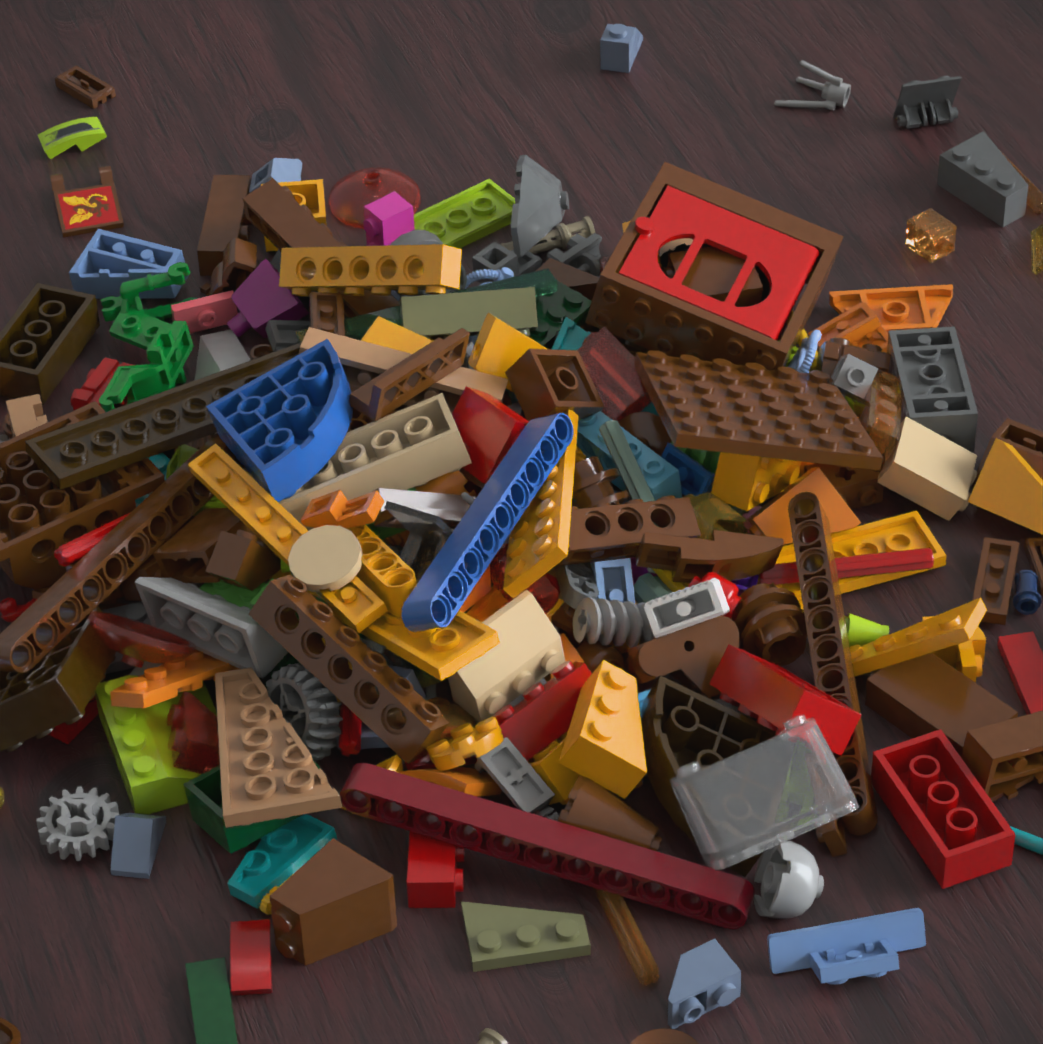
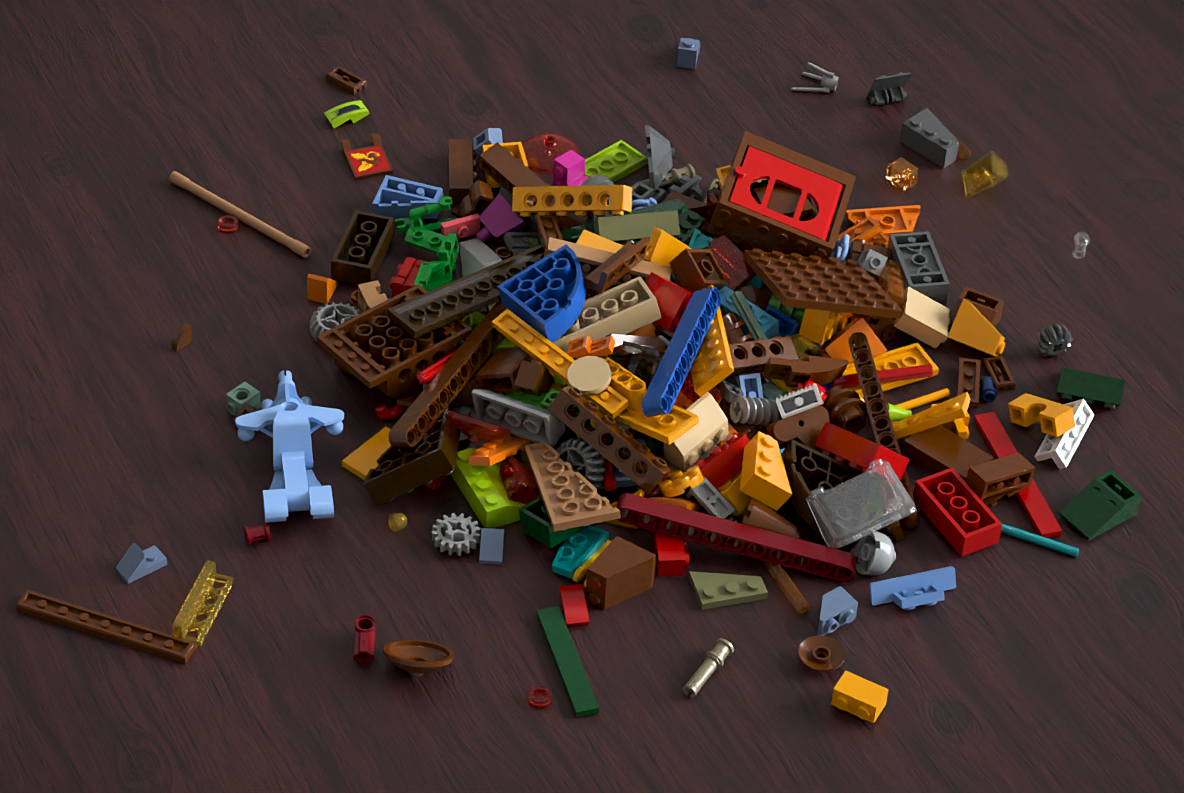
camera: 10 degrees left, 0 degrees up
(915, 608) = (924, 399): none -> light orange bar

